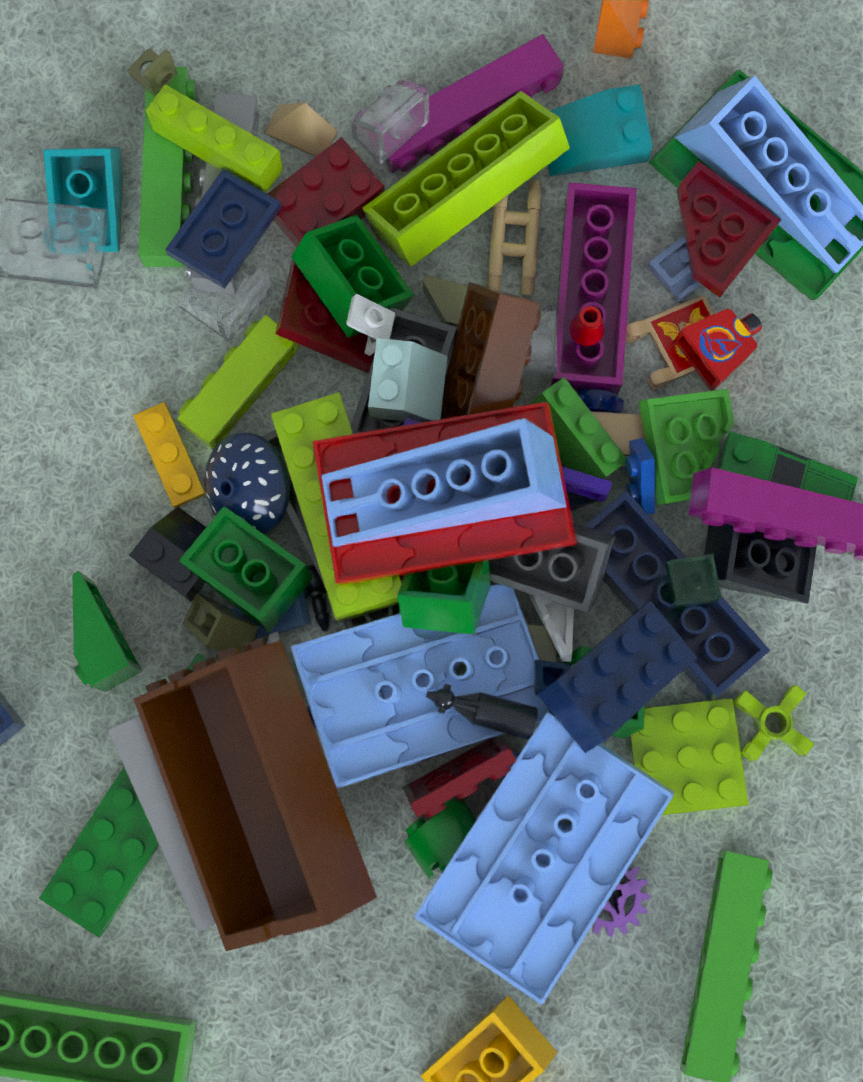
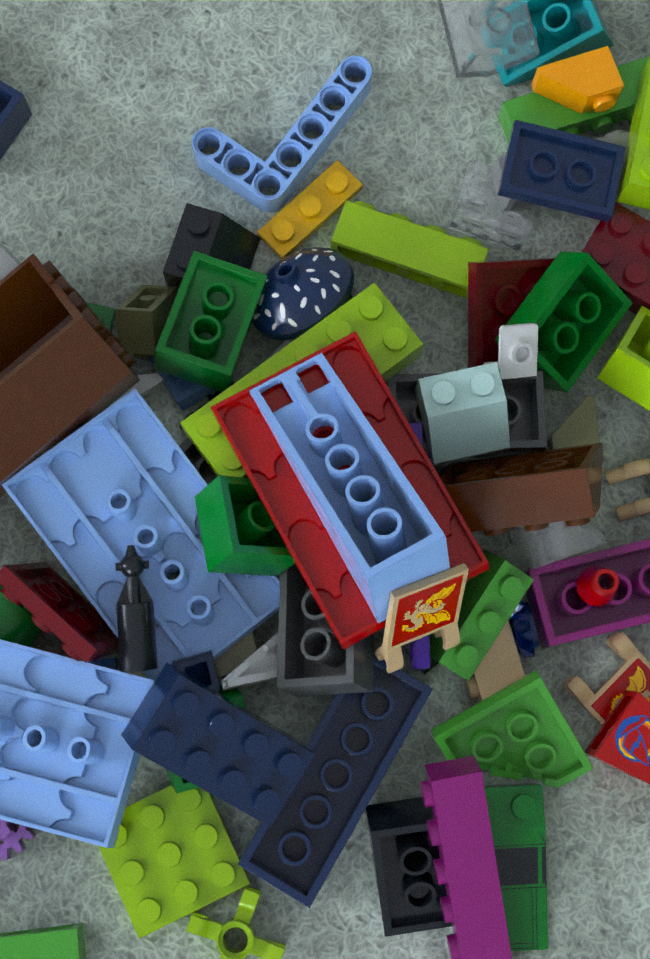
camera: 65 degrees right, 0 degrees up
(98, 642) = (91, 205): green slope -> none
(108, 445) = (294, 144): none -> light blue beam
(149, 183) = (581, 81): none -> light orange slope
(568, 469) = (423, 610): none -> flag
(641, 469) = (463, 697): blue plate -> none
(693, 581) = (354, 795): clear green piece -> none

